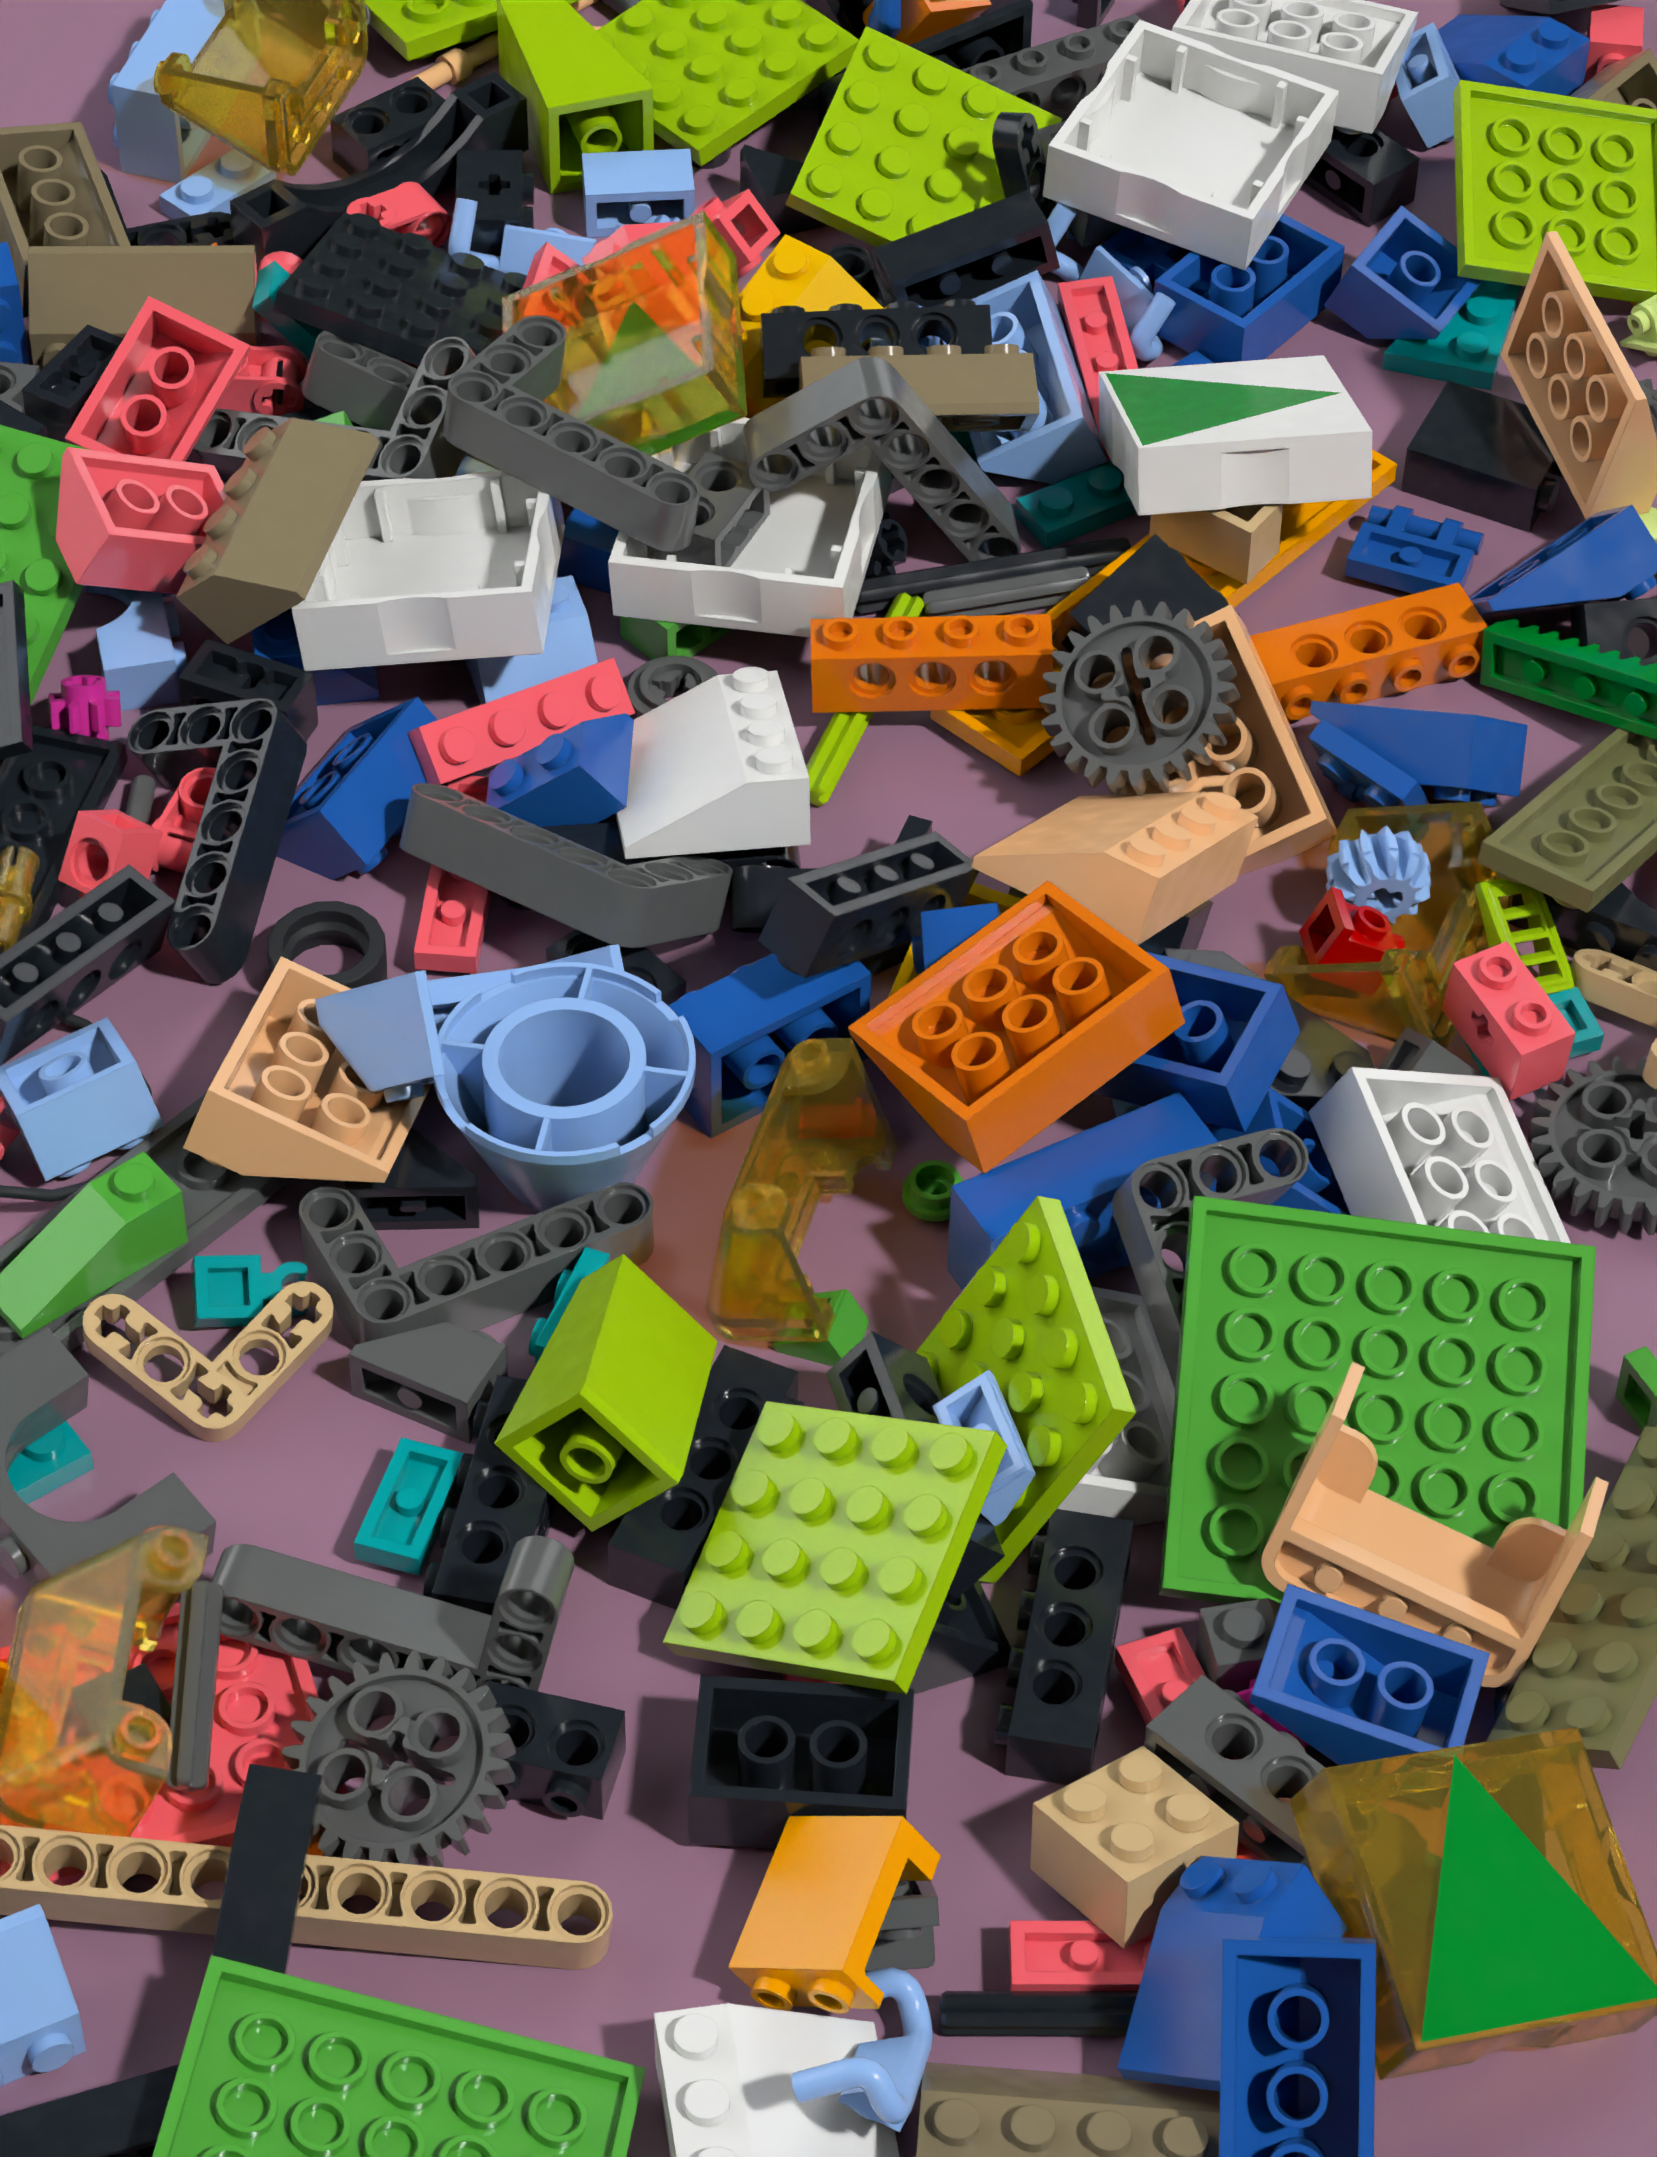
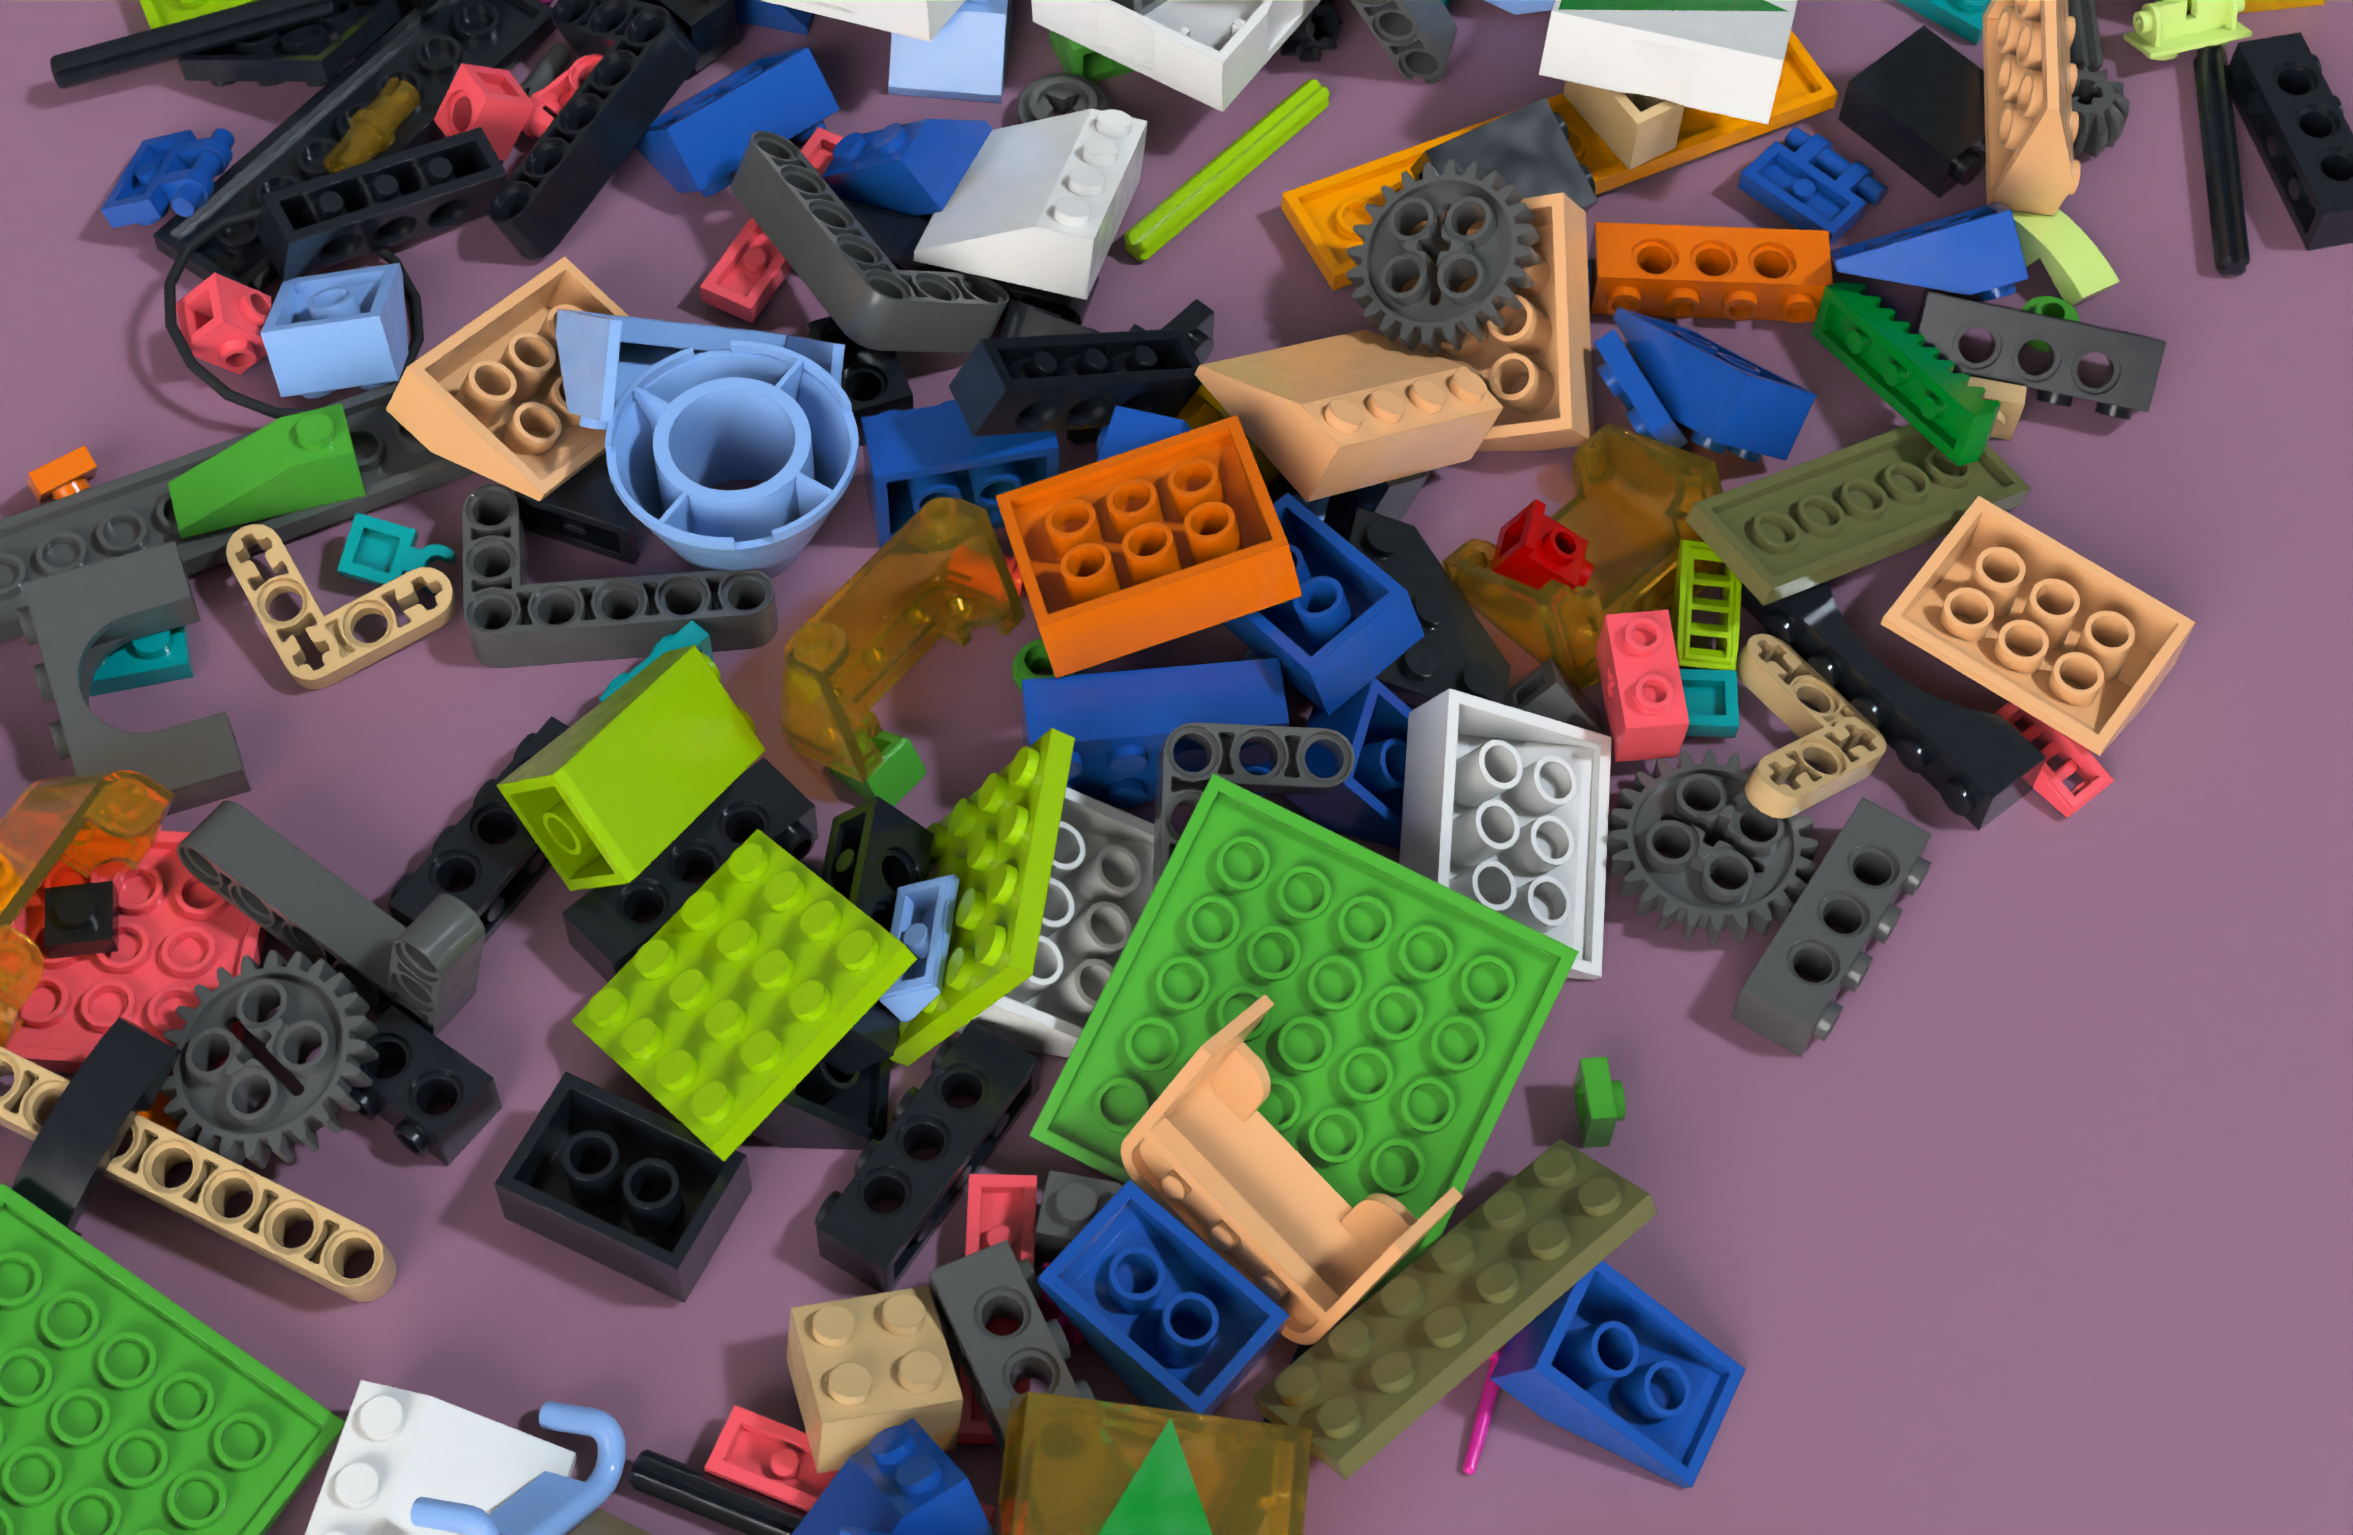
camera: 20 degrees right, 10 degrees up
(195, 1686) = (132, 920): dark grey axle -> none
(332, 925) = (633, 233): black tyre -> none
(408, 1507) = (426, 805): teal plate -> none
(430, 1375) = (508, 690): dark grey slope -> none
(517, 722) = (900, 96): coral plate -> none
(825, 1909) = (562, 1335): light orange panel -> none
(879, 591) = (1404, 85): black axle -> none
(907, 1929) = (641, 1356): dark grey slope -> none
(930, 663) = (1284, 155): orange brick -> none
(1005, 594) = (1406, 109): dark grey axle -> none
(1075, 505) = (1507, 42): teal plate -> none
(1381, 872) = (1599, 499): light blue gear -> none

